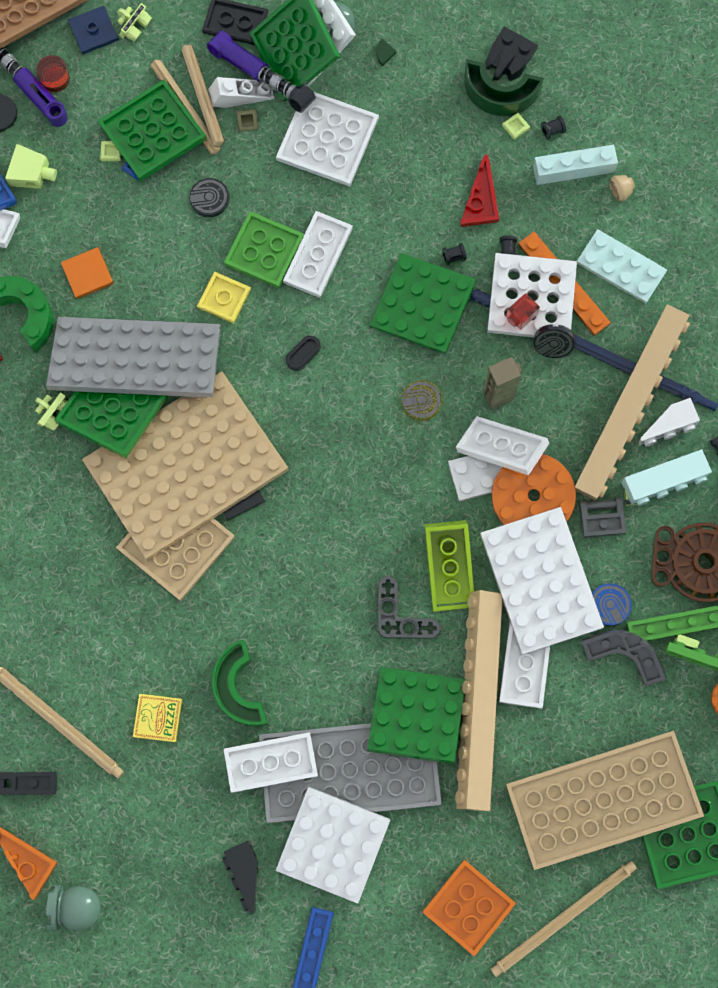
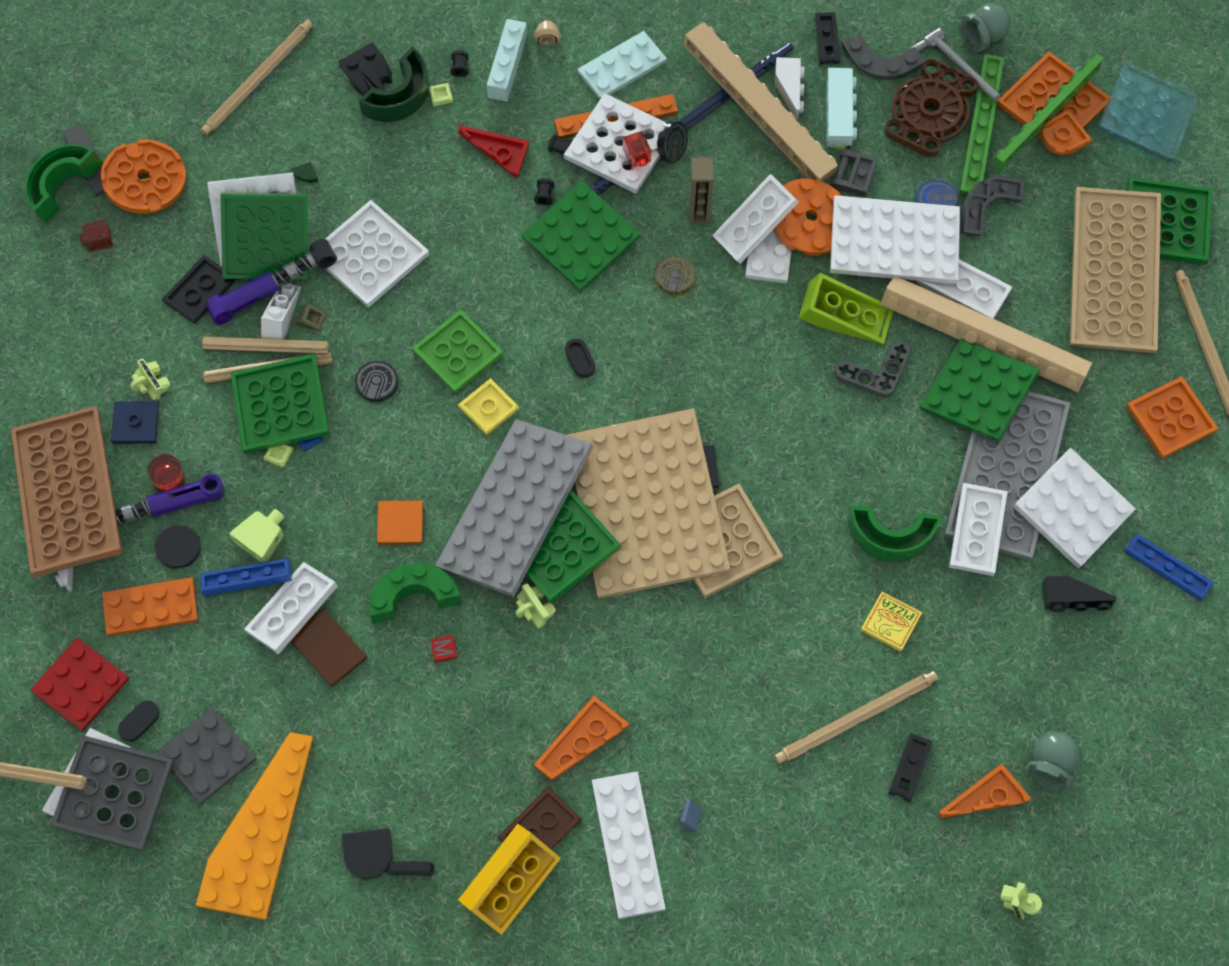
camera: 70 degrees left, 10 degrees down
(318, 254) = (486, 306): white plate -> none
(689, 642) = (1001, 145): yellowish green tile -> none

